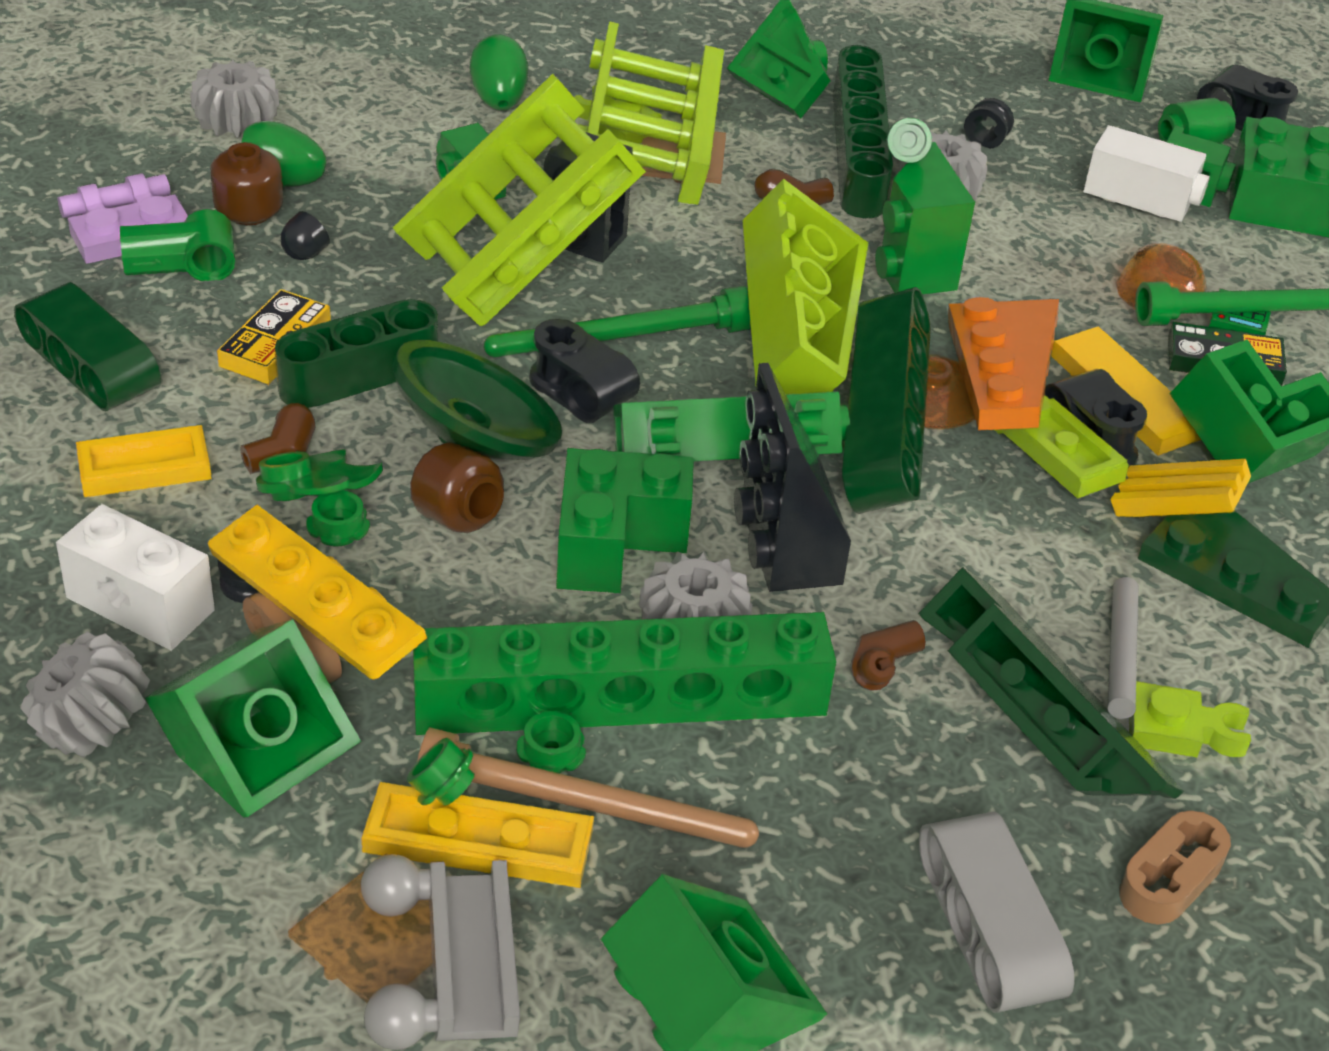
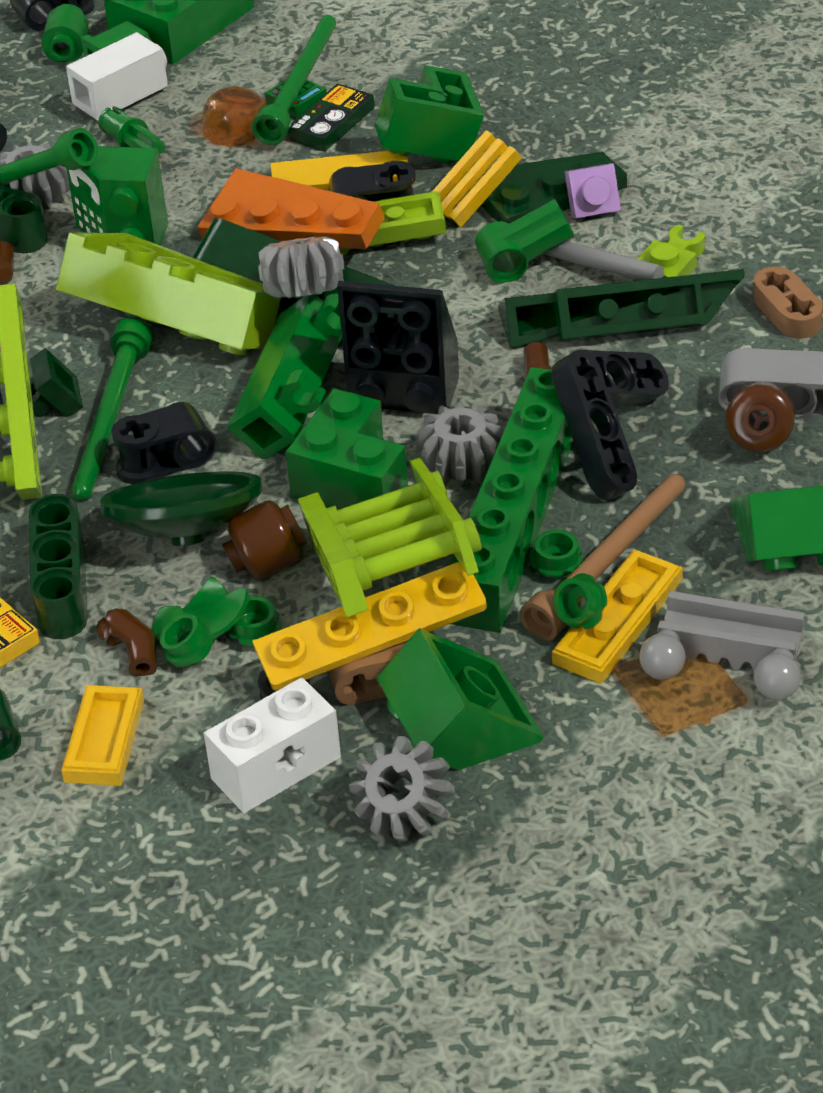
camera: 60 degrees left, 0 degrees up
(424, 529) = (388, 535): none -> lime fence
(629, 275) = (53, 386): none -> dark green tile
(822, 685) = (590, 393): none -> black beam
(850, 361) = (301, 267): none -> light grey gear
(888, 878) = (763, 397): none -> reddish brown head
(1070, 216) = (128, 130): none -> green axle
(1094, 560) = (510, 247): none -> green piece
(1247, 604) = (592, 190): none -> lavender plate

